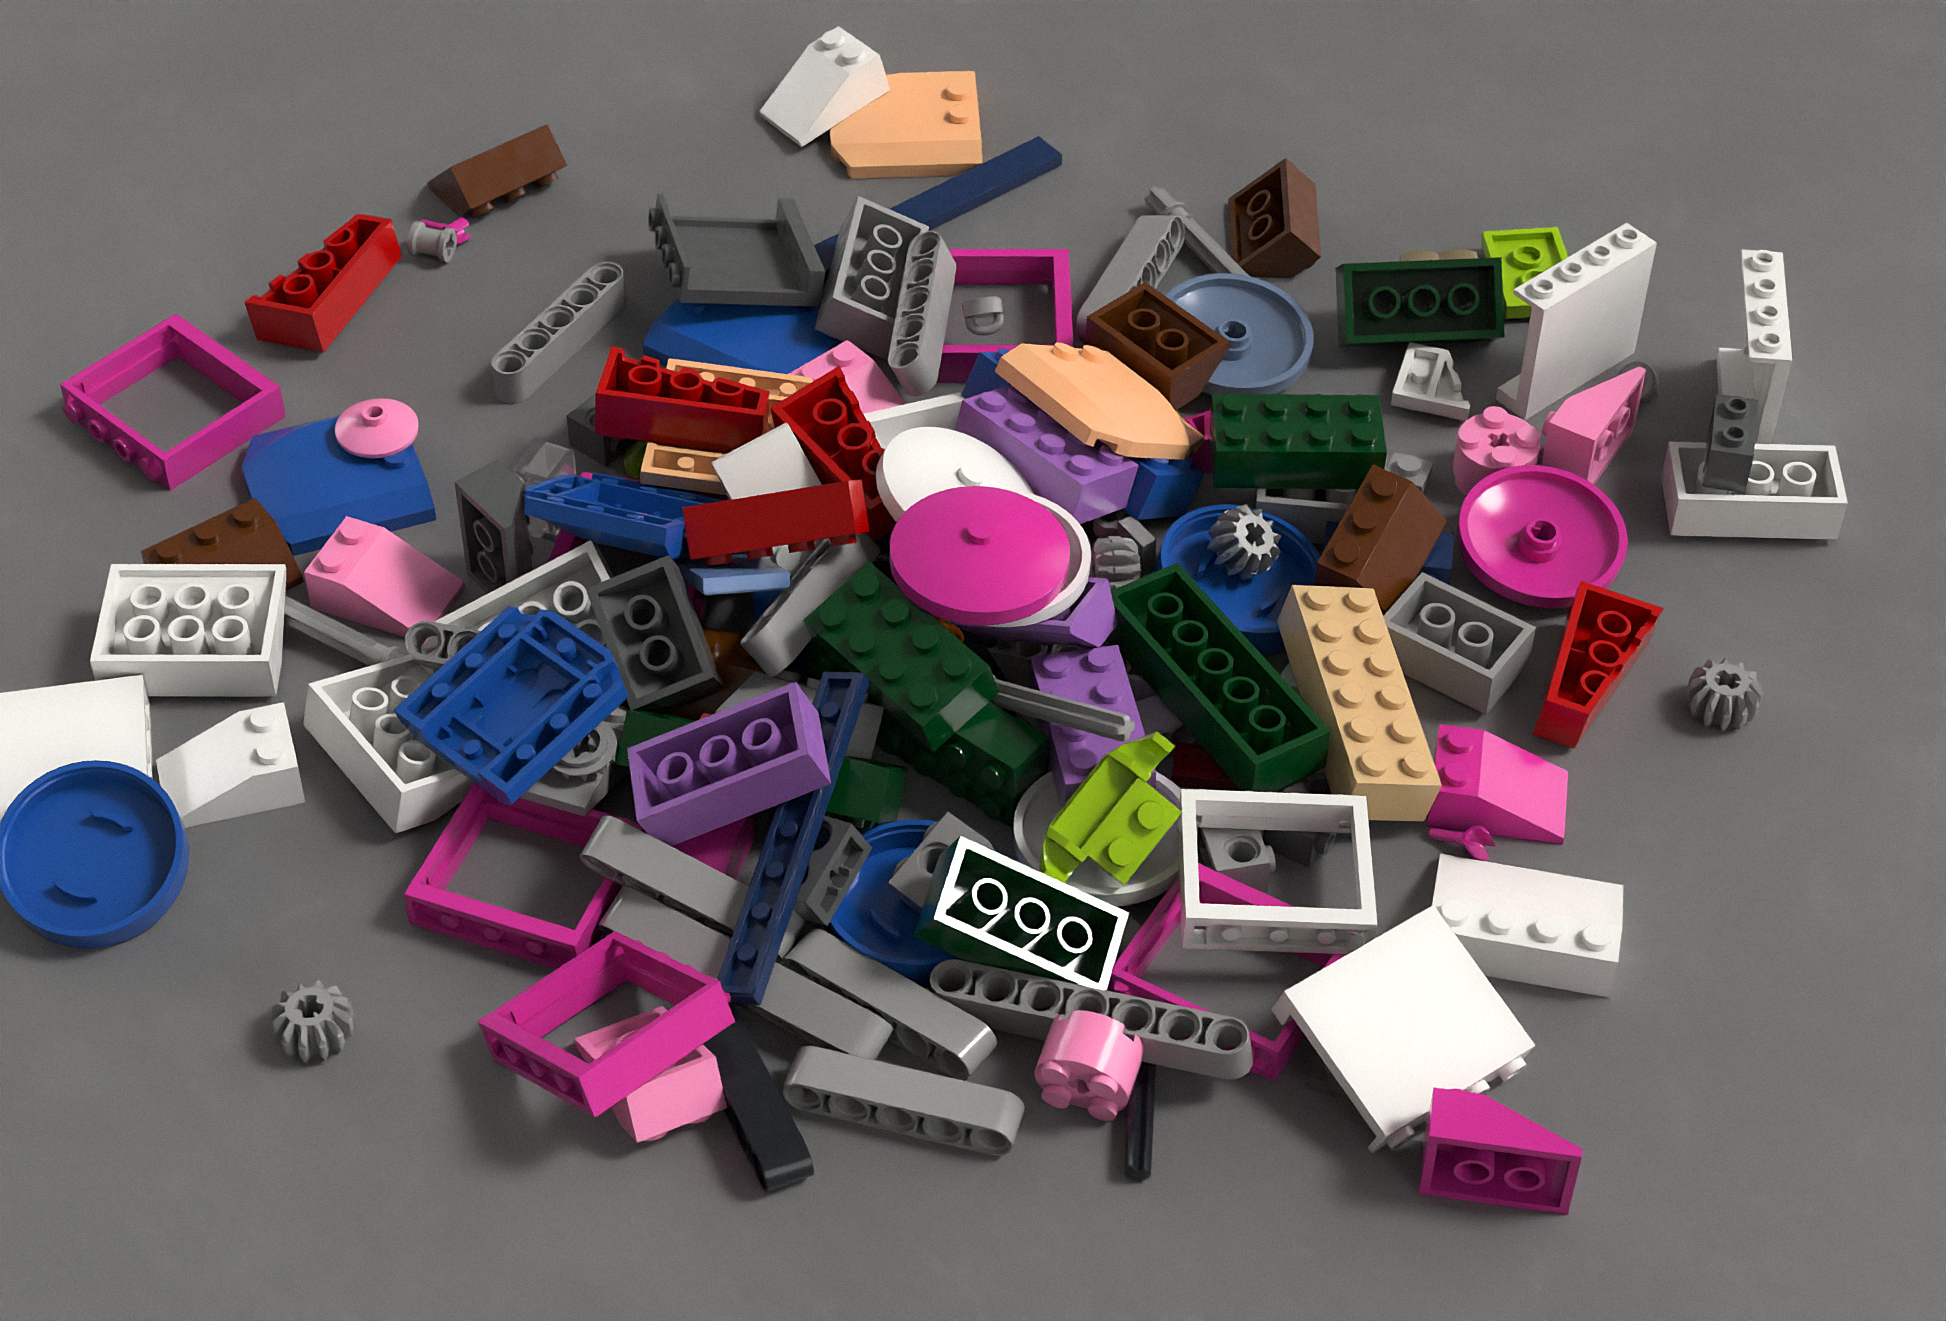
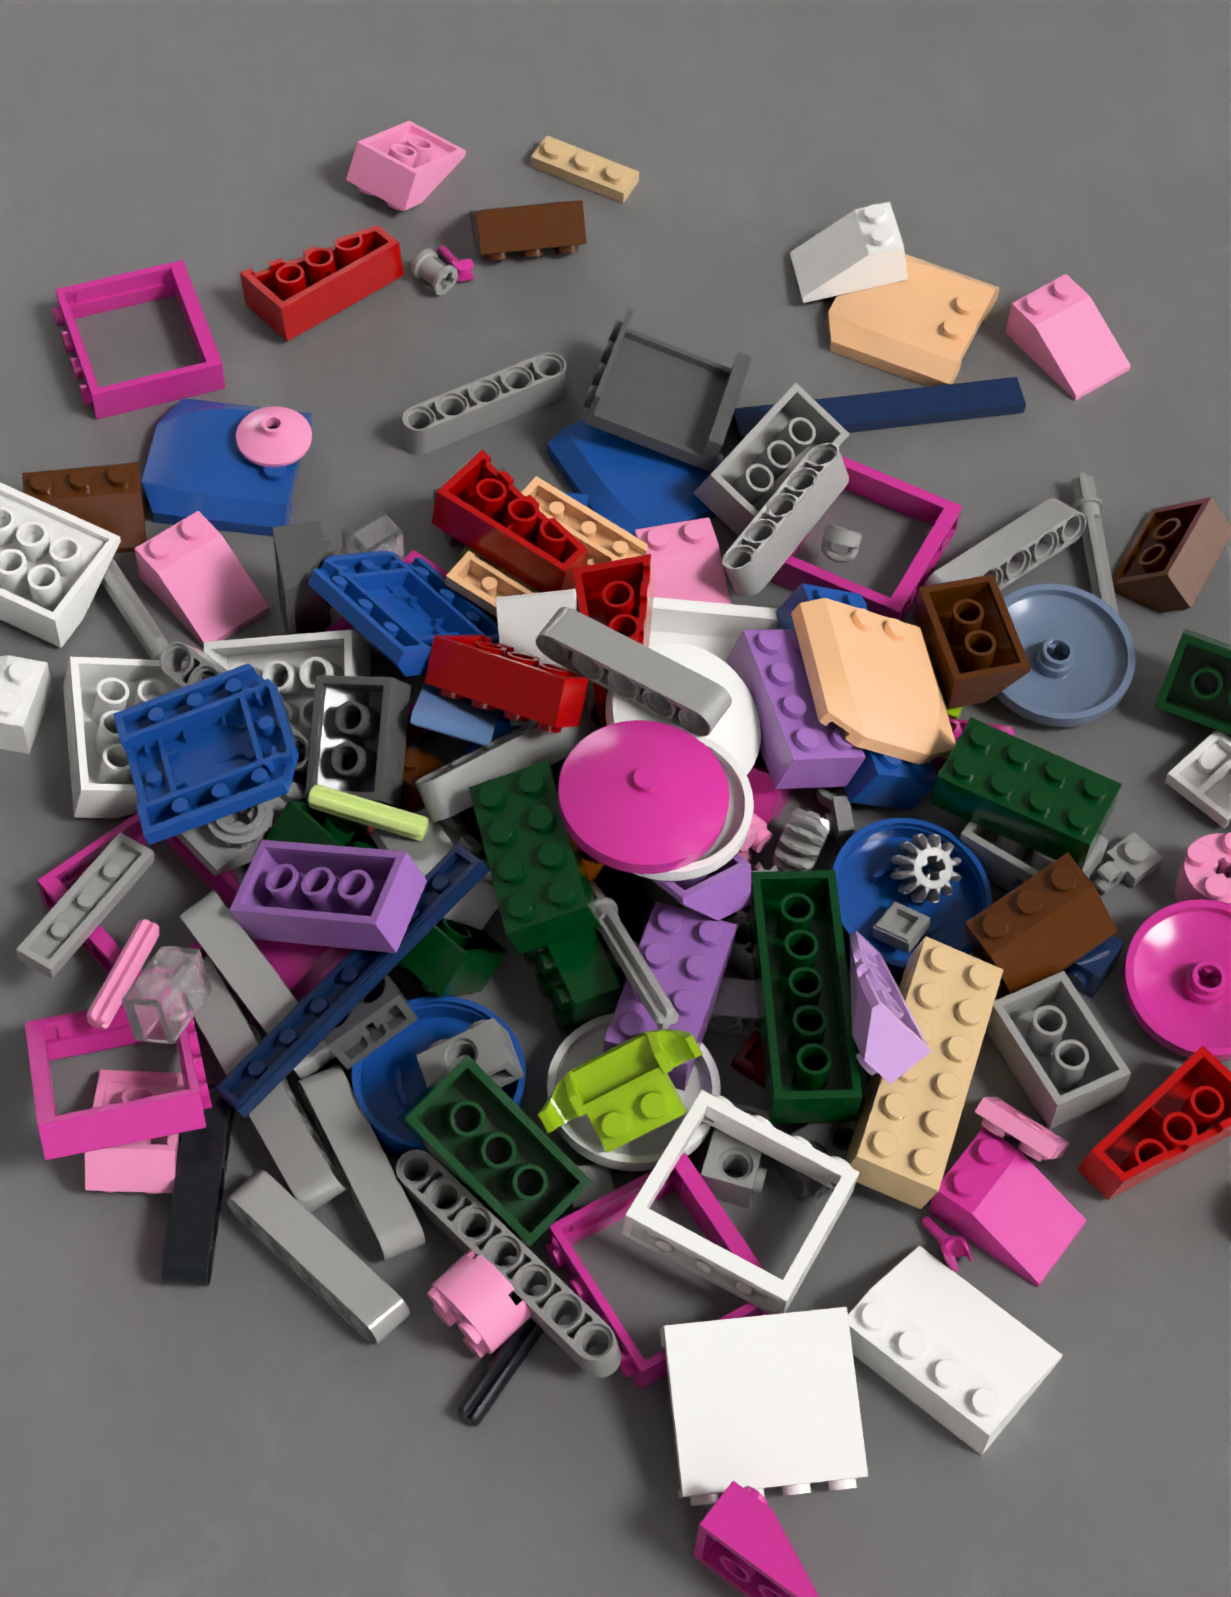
camera: 25 degrees right, 10 degrees up
(337, 165) = (402, 164): none -> bright pink slope
(474, 890) = (85, 905): none -> light grey plate
(516, 109) = (584, 169): none -> tan plate
(553, 934) = (123, 974): none -> bright pink axle
(617, 925) = (167, 994): none -> clear brick
(705, 692) = (368, 812): none -> yellowish green axle
(899, 456) = (634, 671): none -> light grey beam
(1060, 88) = (1066, 337): none -> bright pink slope
(1251, 601) = (901, 927): none -> light grey tile
(1305, 656) = (880, 1016): none -> lavender wedge
(1471, 712) = (1007, 1121): none -> bright pink plate

